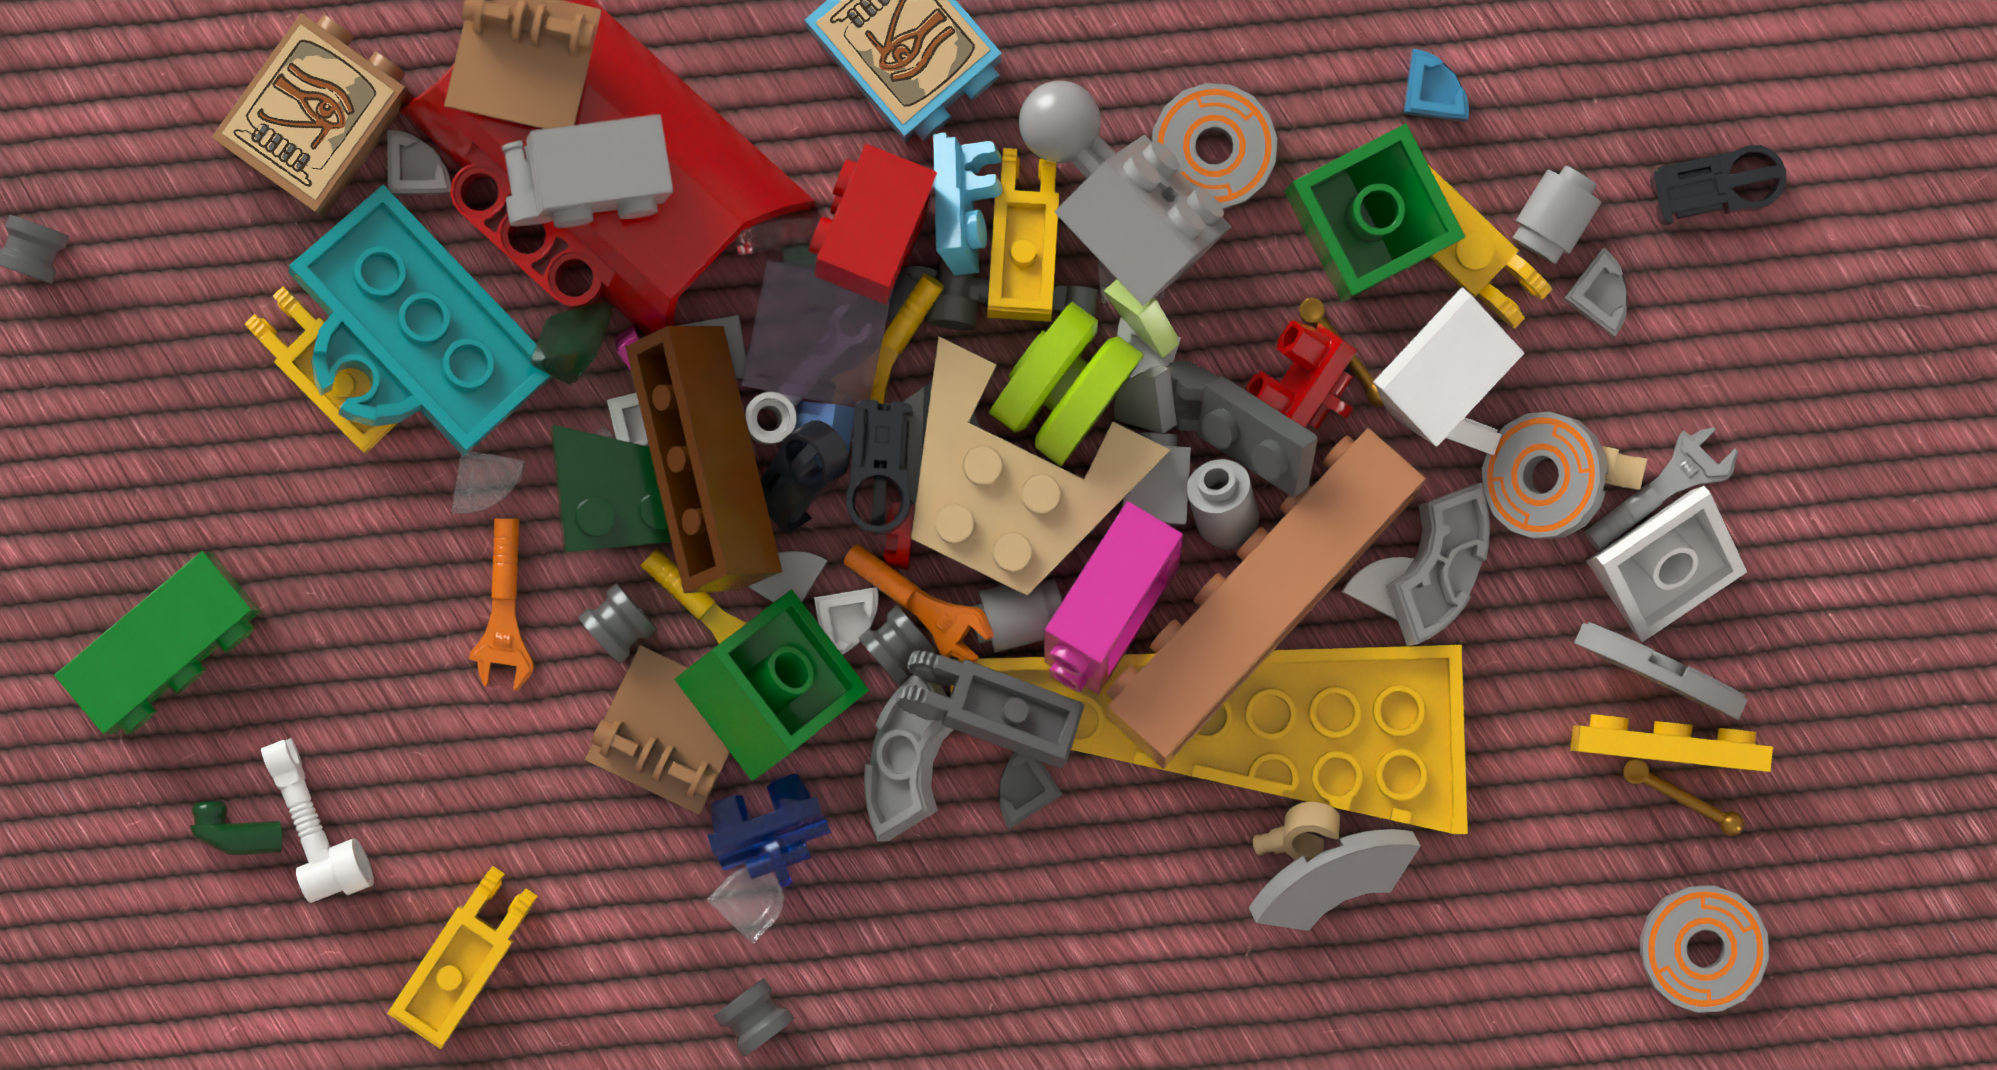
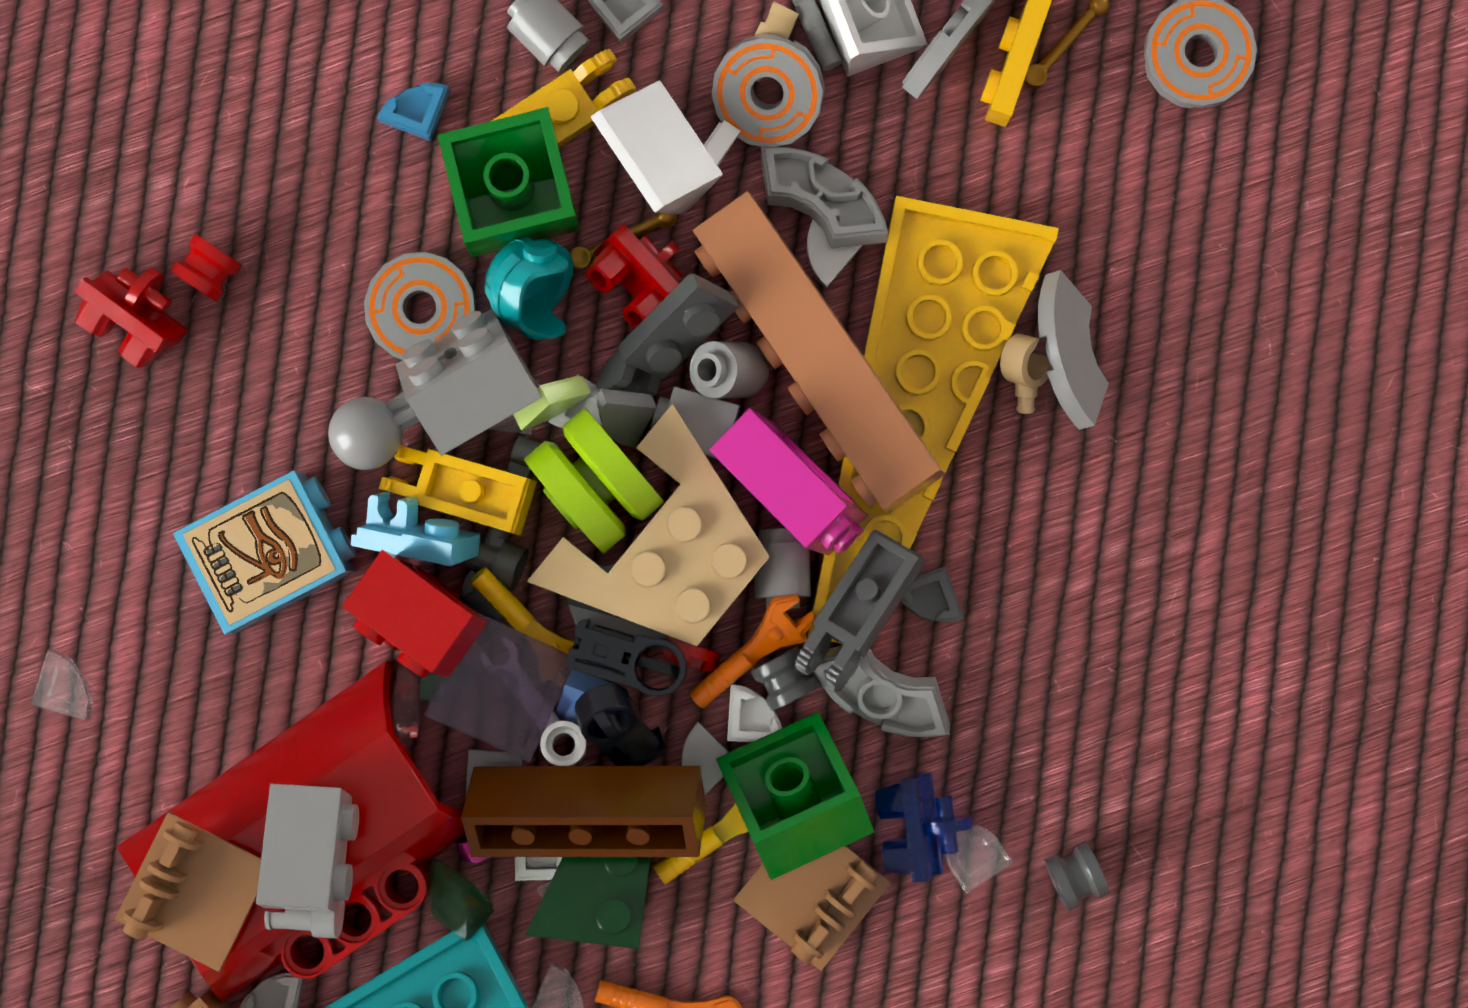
camera: 75 degrees left, 0 degrees up
(617, 623) = (710, 916): dark grey wheel -> none
(1266, 259) = (527, 284): none -> teal cap

